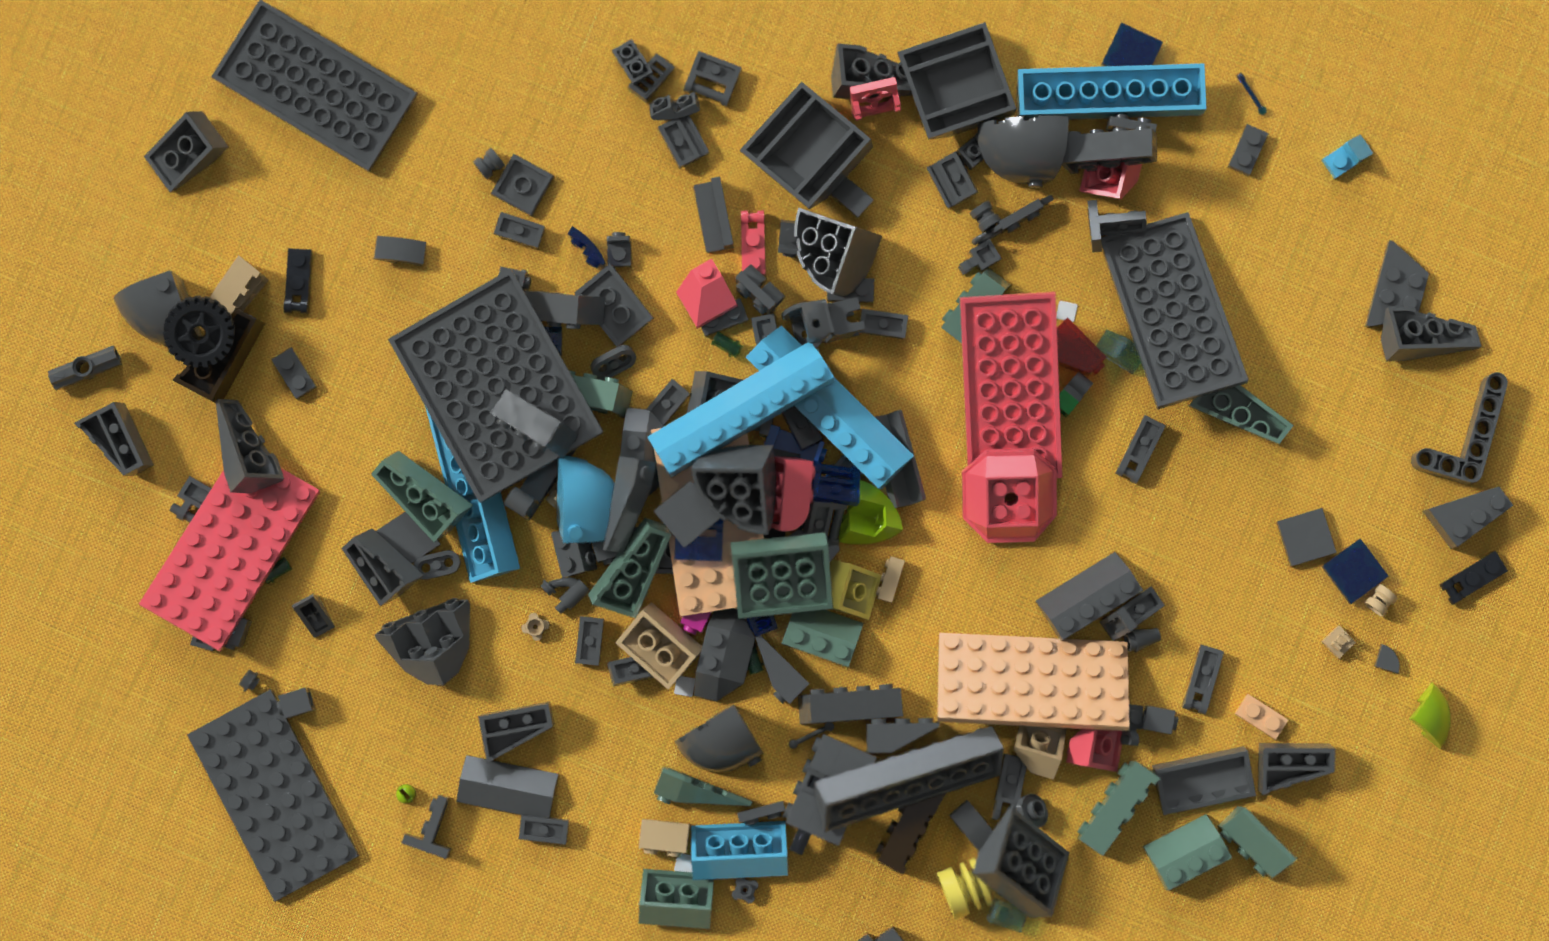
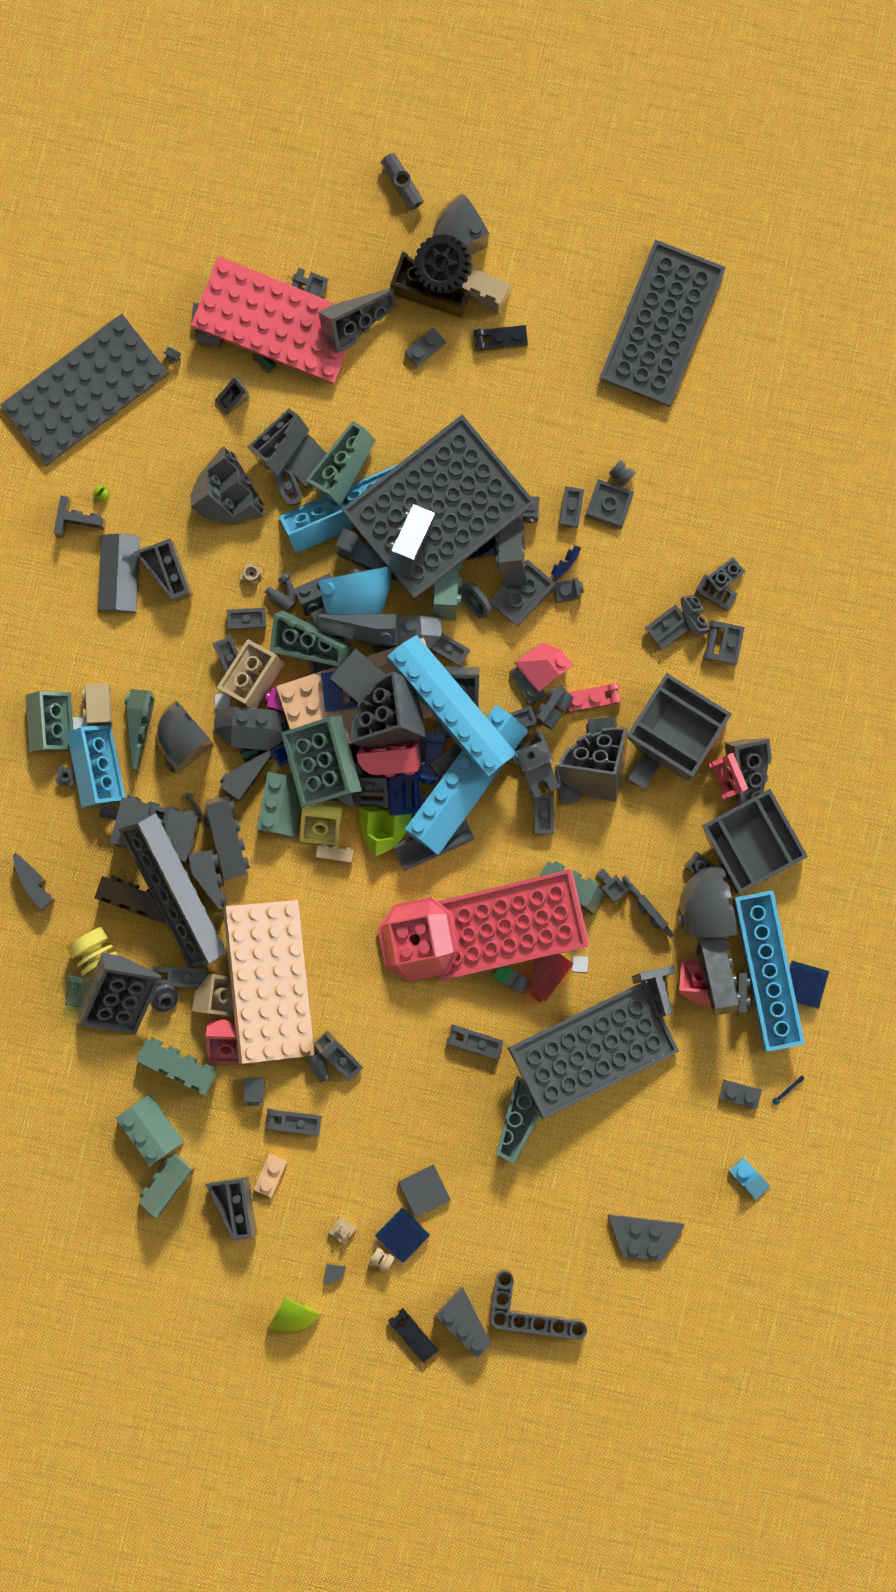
camera: 70 degrees right, 0 degrees up
(118, 438) = (349, 217): dark grey wedge -> none
(186, 150) = (592, 230): dark grey slope -> none
(295, 703) = (160, 394): dark grey brick -> none
(399, 250) = (538, 413): dark grey slope -> none
(543, 829) = (89, 607): dark grey plate -> none
(713, 215) = (610, 662): dark grey panel -> none
(726, 344) = (505, 690): clear green pin -> none
(771, 811) = (125, 771): dark grey plate -> none
(952, 179) = (673, 852): dark grey plate -> none
(971, 824) = (146, 949): dark grey slope -> none
(985, 216) = (647, 883): dark grey wheel -> none
(1088, 596) = (346, 1017): dark grey slope -> none
(1119, 350) = (554, 1011): clear light blue slope -> none
(1135, 722) = (249, 1069): dark grey plate -> none
(1204, 780) = (211, 1135): dark grey slope -> none
(1418, 335) = (607, 1257): dark grey wedge -> none

